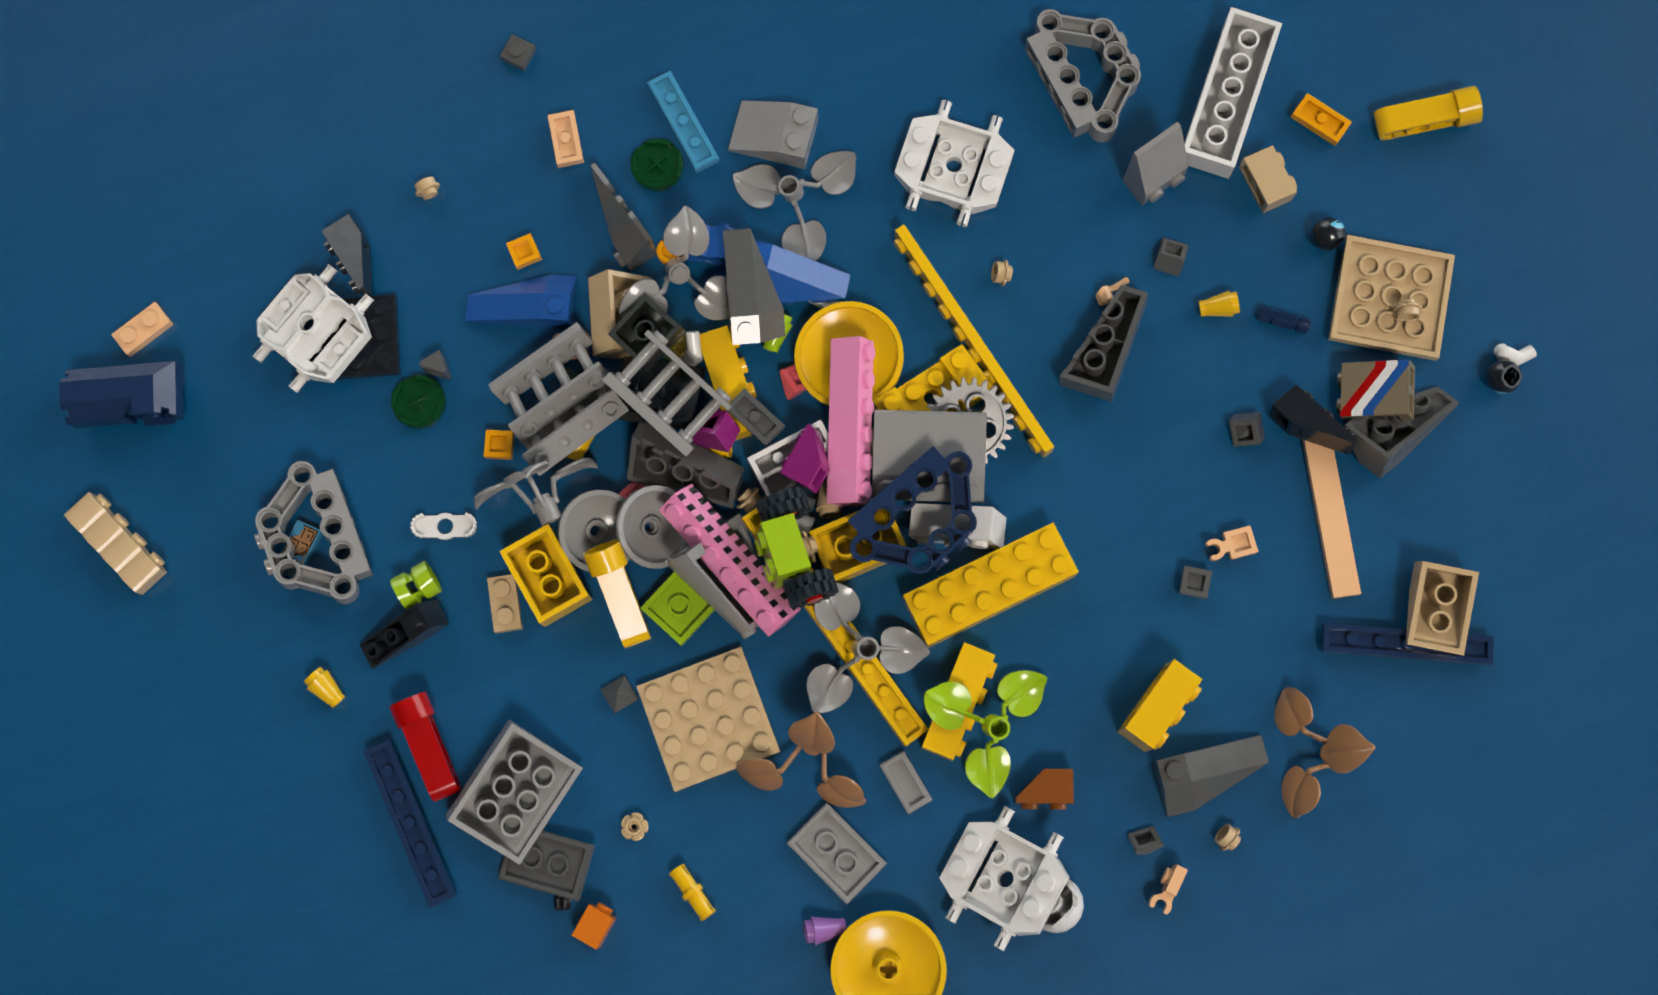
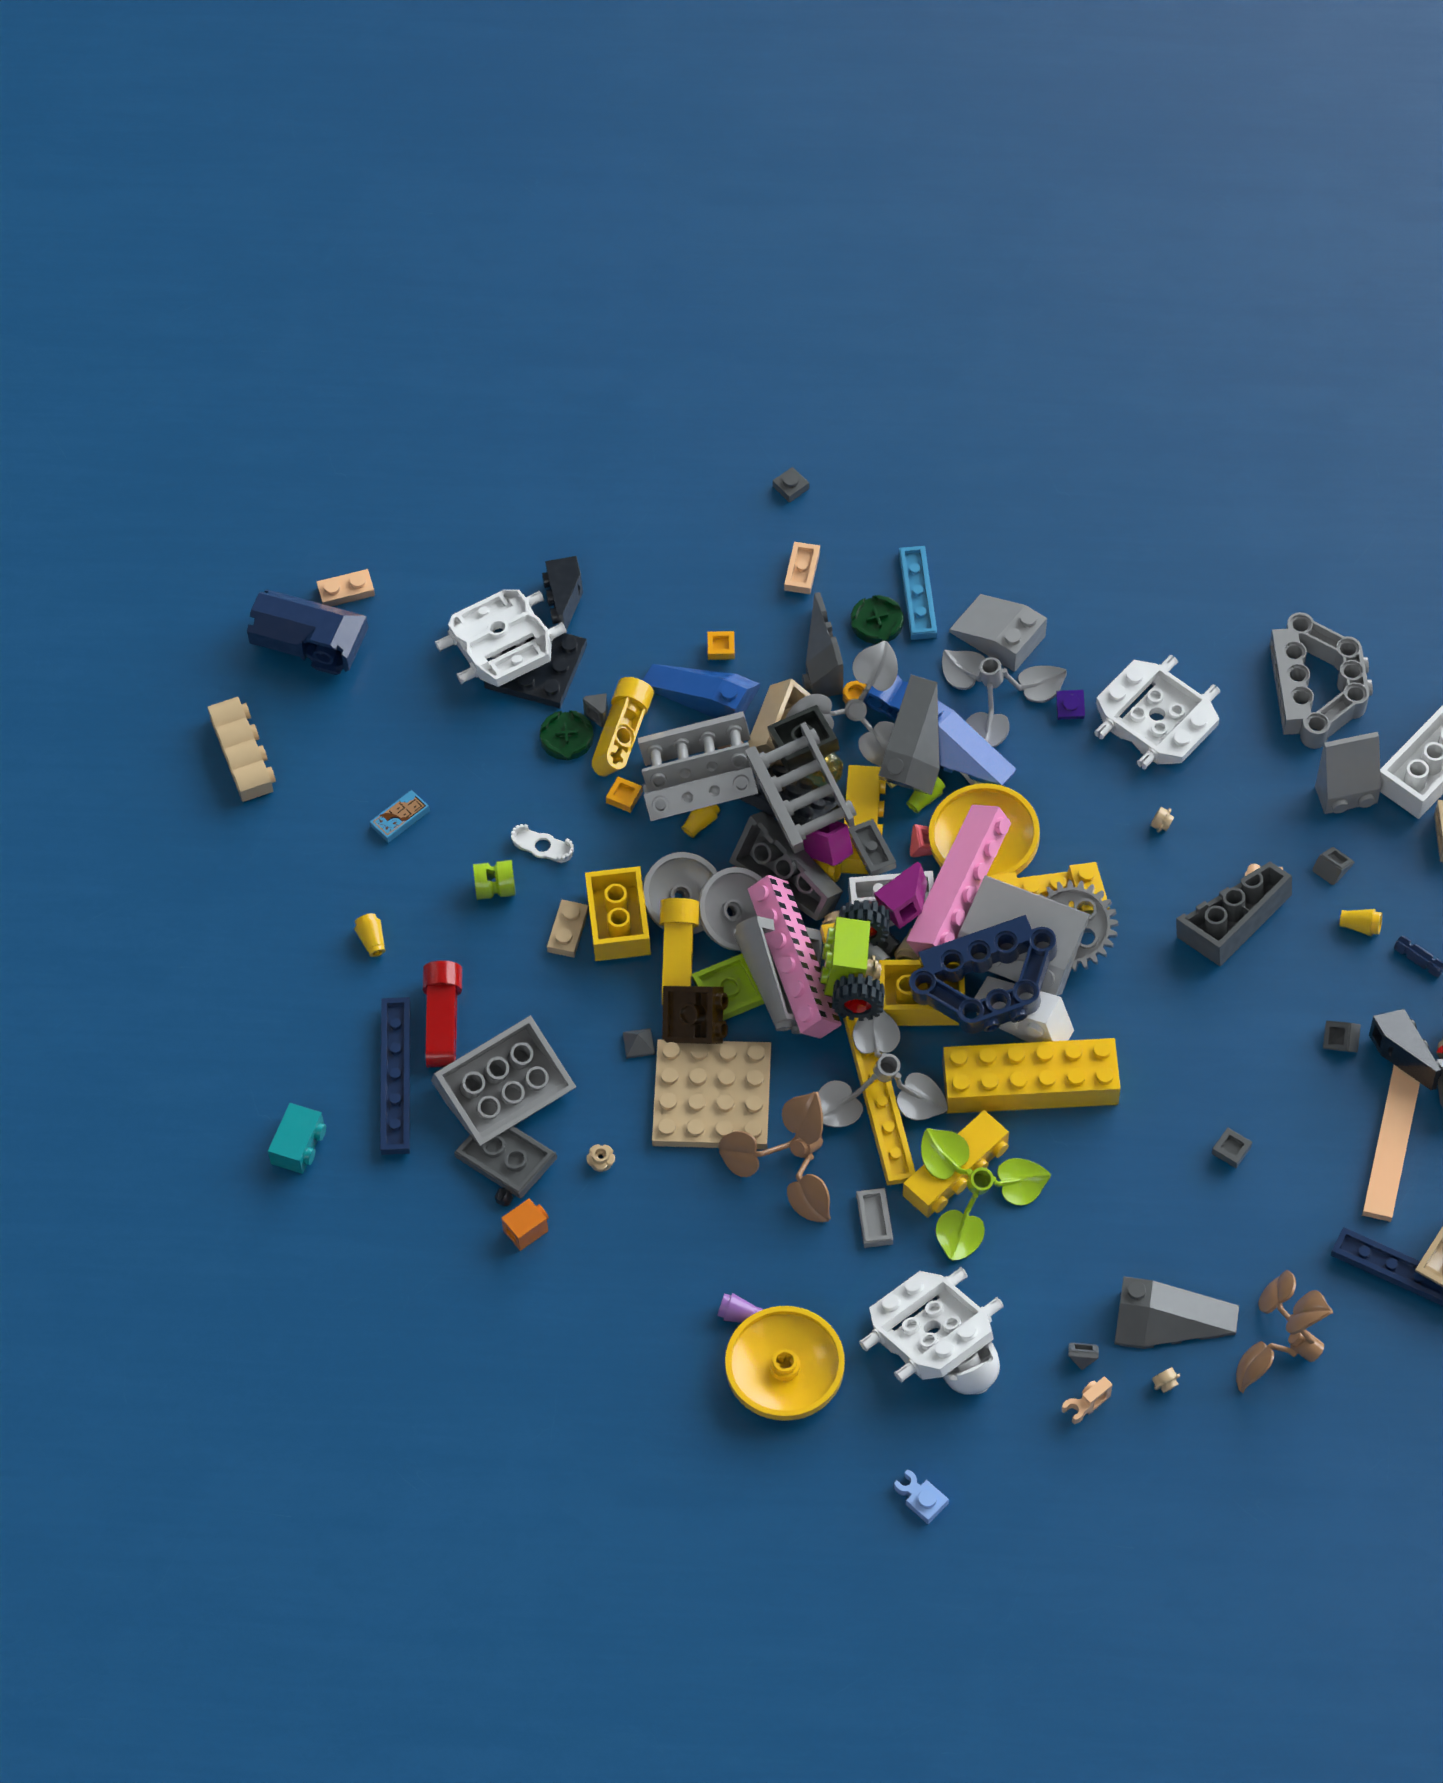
camera: 20 degrees right, 20 degrees down
(284, 506) = (400, 836): light grey brick -> none
(346, 927) = (297, 1138): none -> teal brick
(404, 632) = (465, 916): black slope -> none
(427, 188) = (656, 563): tan plate -> none
(464, 348) = (619, 733): none -> yellow beam
(544, 506) = (643, 849): light grey plant -> none
(661, 653) = (694, 1014): none -> dark brown plate
(692, 892) = (629, 1232): yellow pin -> none
(693, 353) = (841, 772): white arm -> none
(836, 853) = (781, 1253): light grey tile -> none
(871, 185) = (1070, 704): none -> dark purple plate
(966, 332) = (1109, 873): yellow plate -> none
(1050, 788) = (1007, 1269): dark orange slope -> none
(1161, 706) = (1148, 1233): yellow brick -> none
(1236, 543) = (1287, 1128): light nougat plate -> none

